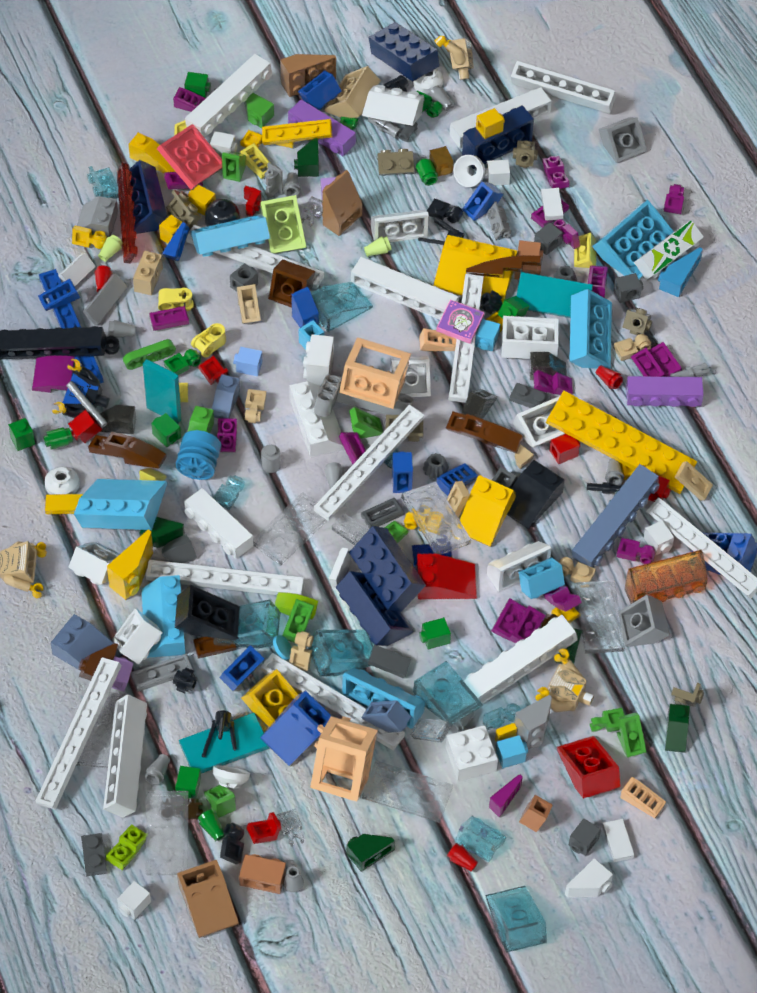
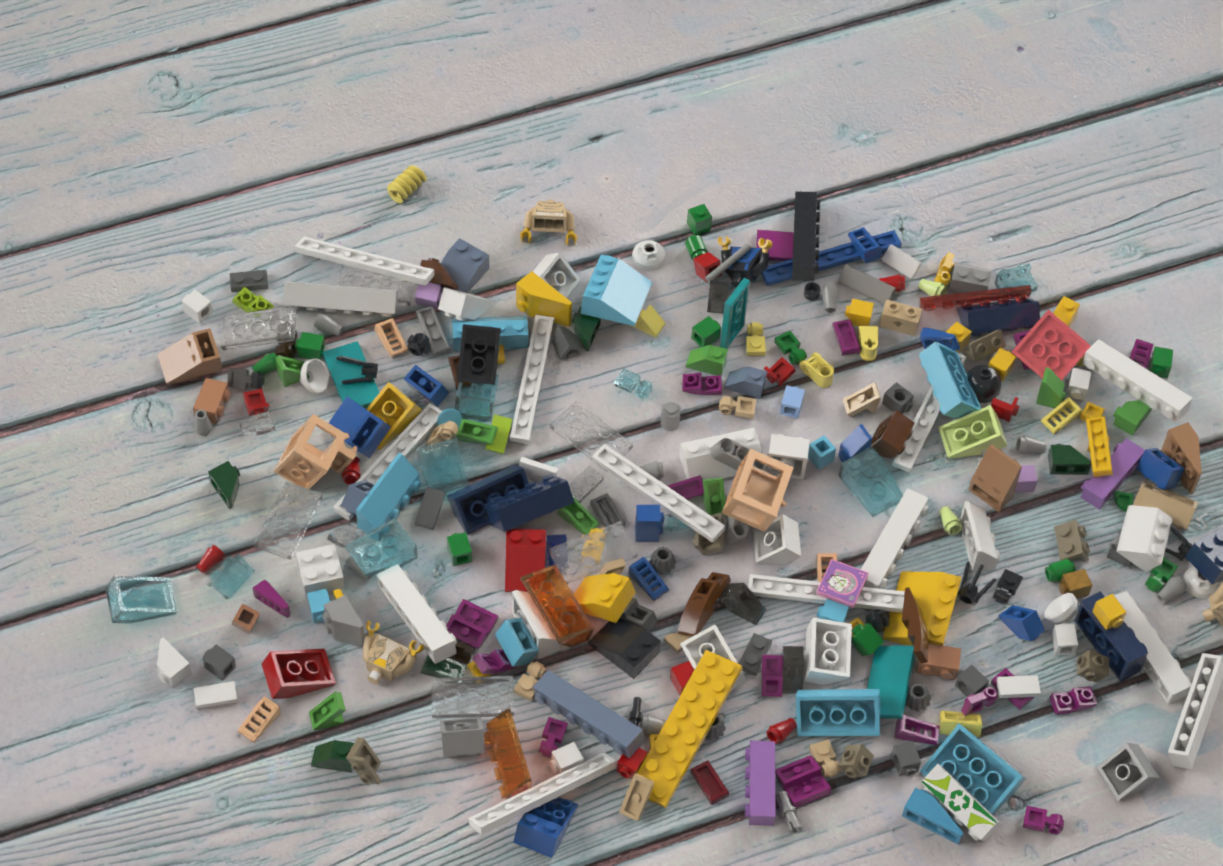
camera: 90 degrees right, 0 degrees up
(61, 503) = (623, 251): yellow tile -> none
(131, 449) = (679, 301): reddish brown slope -> none
(141, 305) = (859, 312): none -> yellow brick
(159, 351) = (799, 320): bright green beam -> none
(163, 718) = (390, 324): none -> light nougat slope
(198, 455) = (669, 352): dark azure wheel -> none
(218, 523) = (594, 373): white brick -> none
(274, 180) = (1027, 420): light grey hinge -> none
(497, 717) = (363, 607): clear light blue plate -> none
(498, 220) = (987, 638): light grey hinge -> none
(502, 540) = (558, 606): none -> clear orange slope
(609, 720) = (350, 696): bright green plate -> none
(667, 431) = (709, 782): none -> dark red tile

